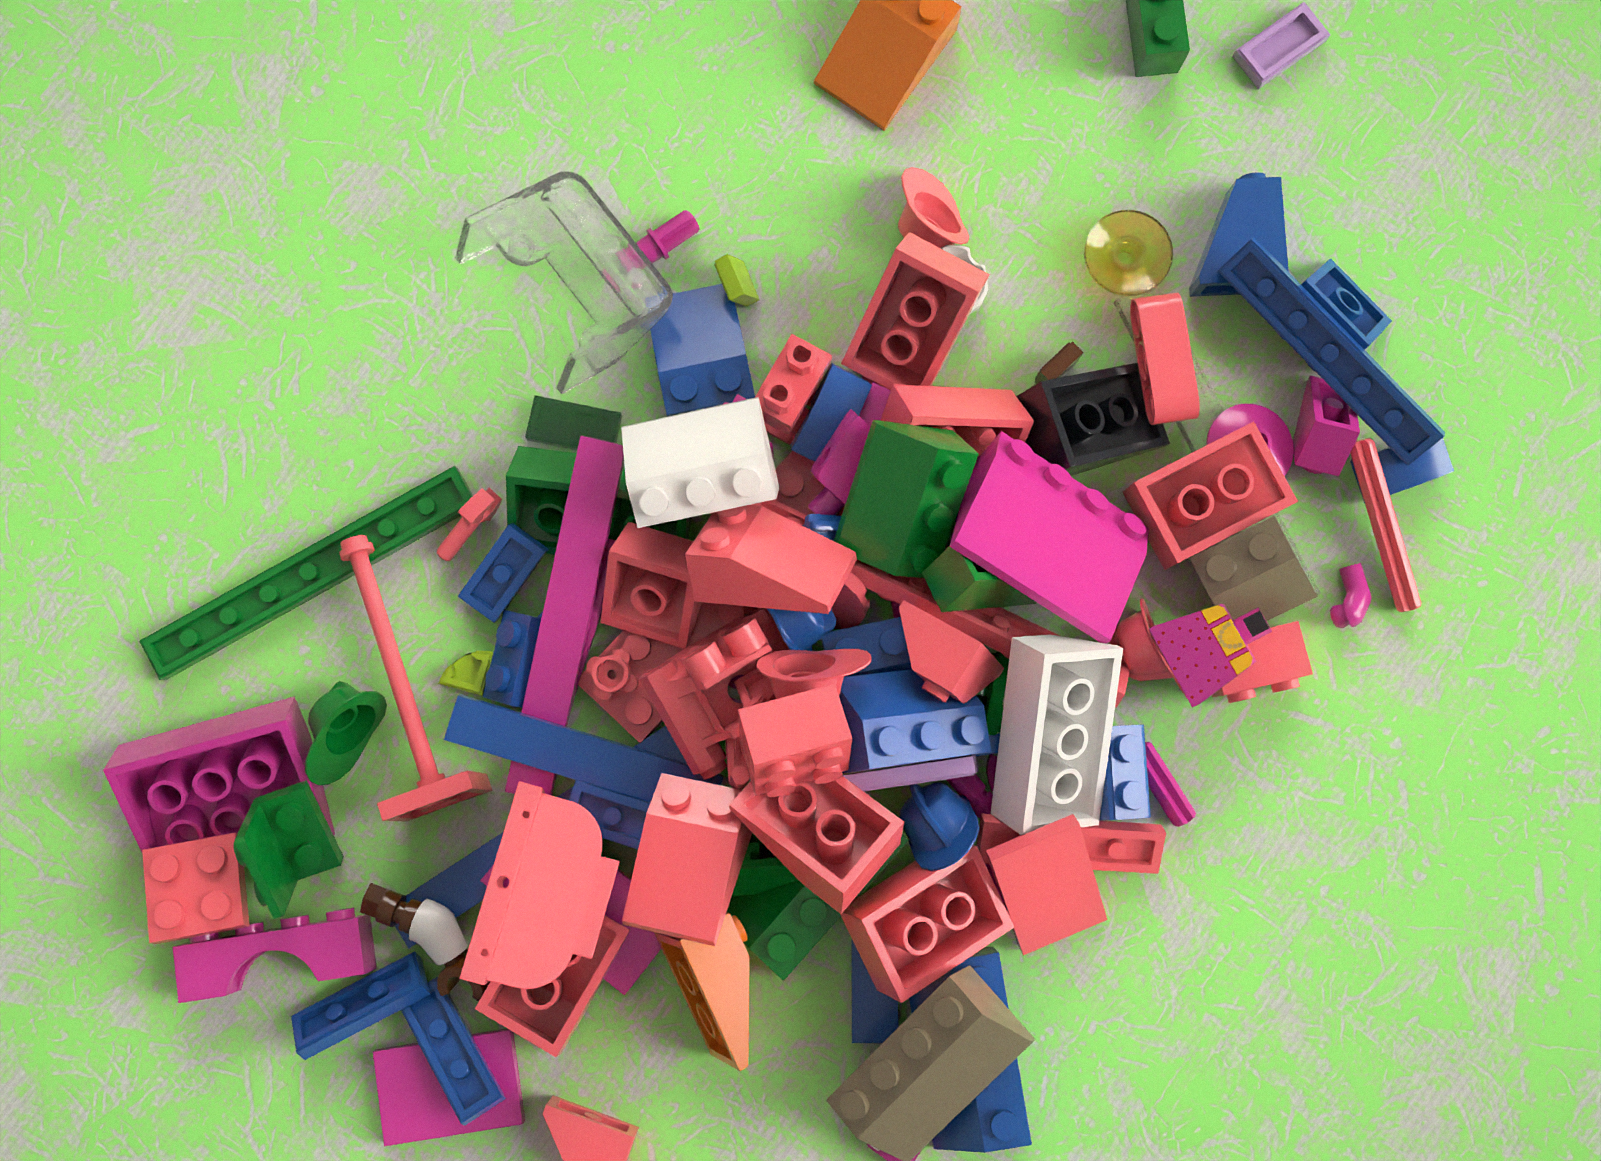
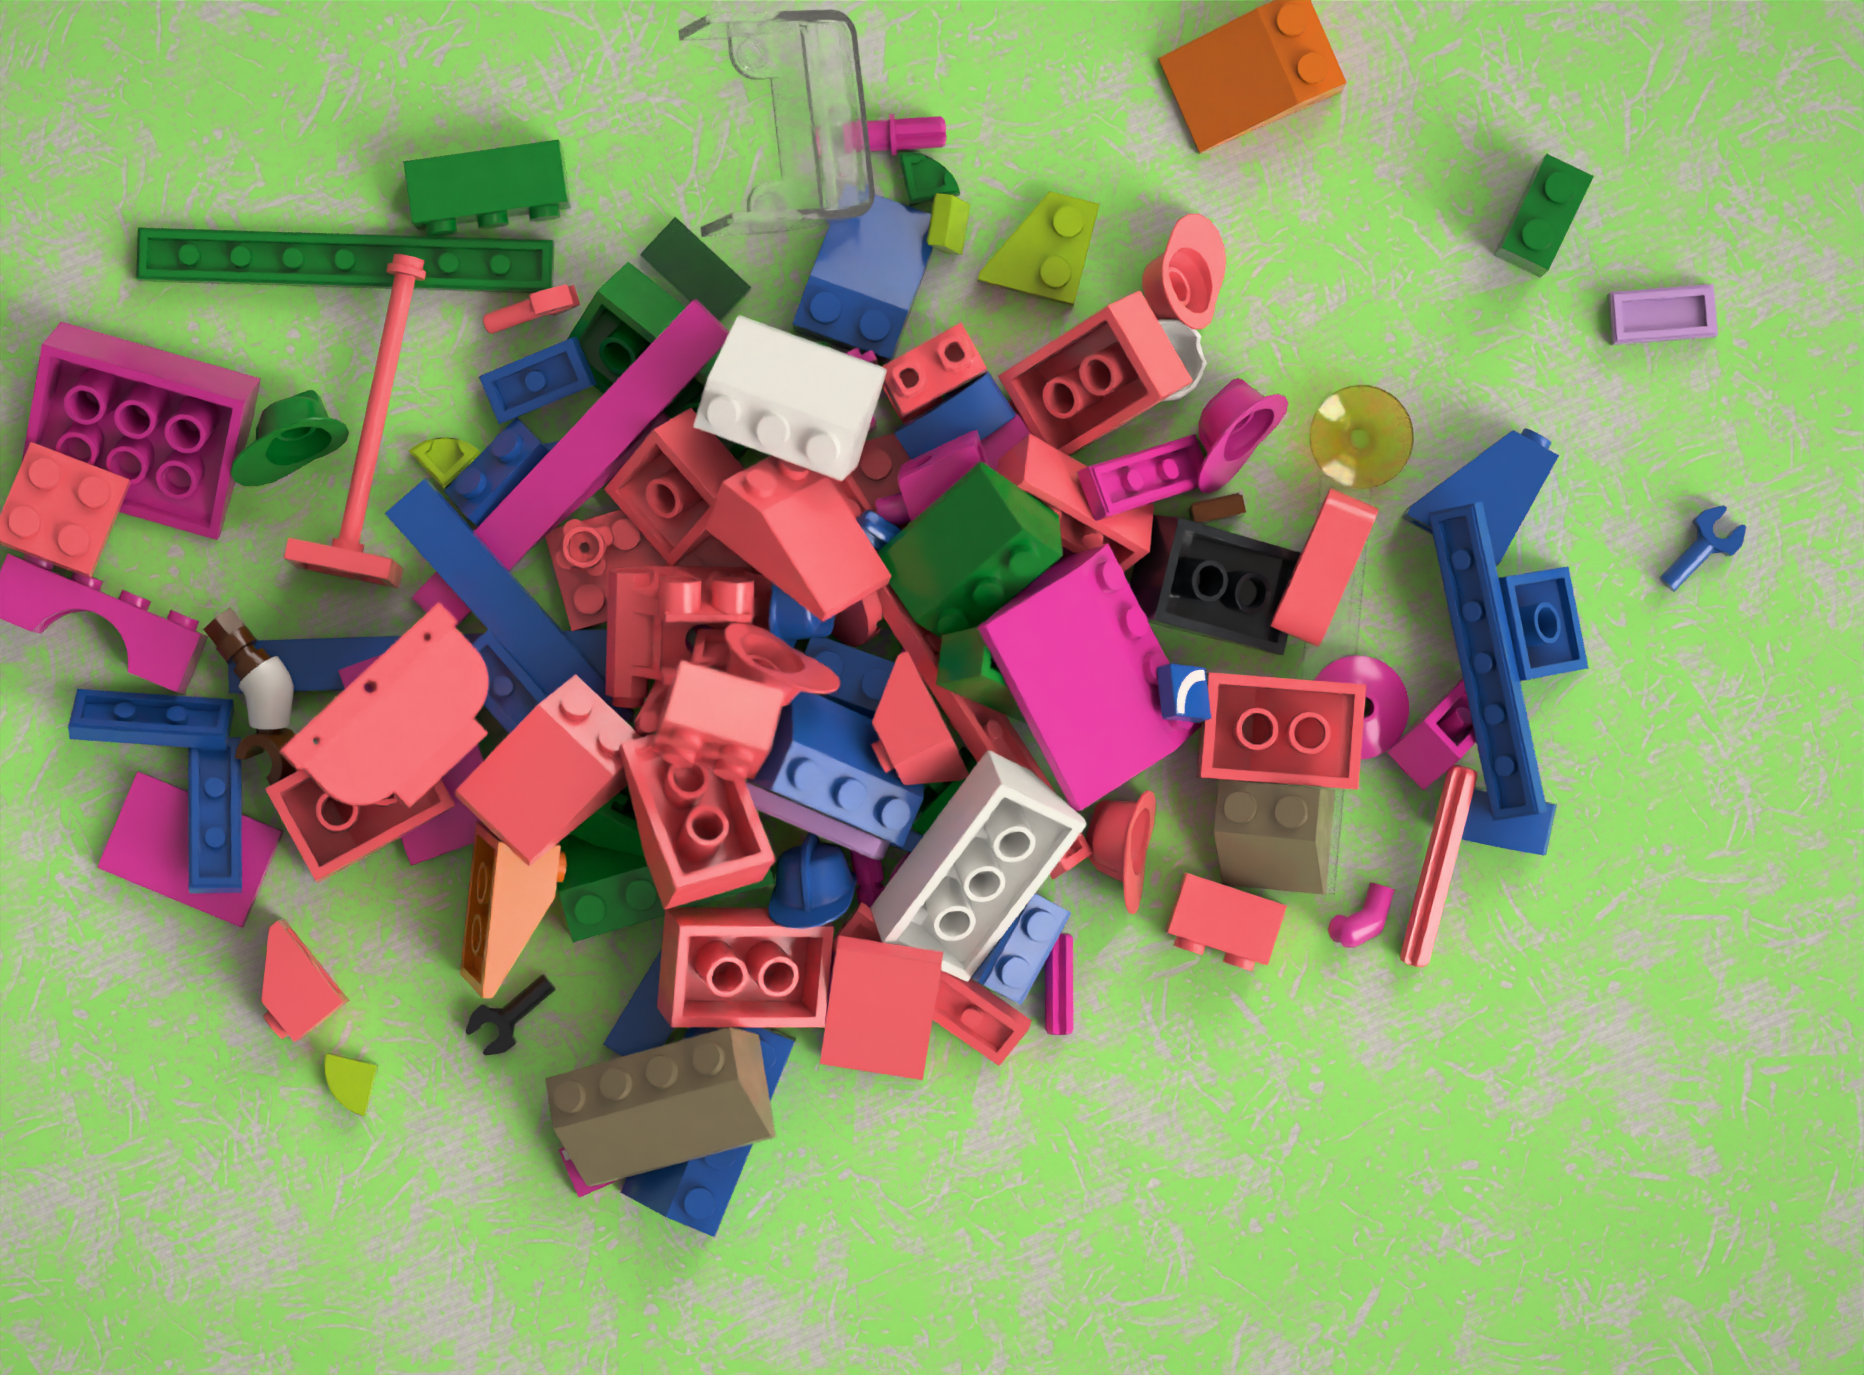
camera: 25 degrees right, 5 degrees up
(285, 842) = (174, 519): green bracket -> none
(382, 455) = (487, 187): none -> green brick
(698, 261) = (925, 178): none -> green tile
(767, 1063) = (510, 1014): none -> black bar
(818, 260) = (1046, 250): none -> lime wing
(993, 371) = (1142, 477): none -> dark pink tile
(1032, 299) = (1233, 428): none -> dark pink piece
(1126, 507) = (1183, 693): none -> blue tile
(1209, 648) = (1176, 878): dark pink torso -> none
(1417, 184) = (1705, 545): none -> blue bar

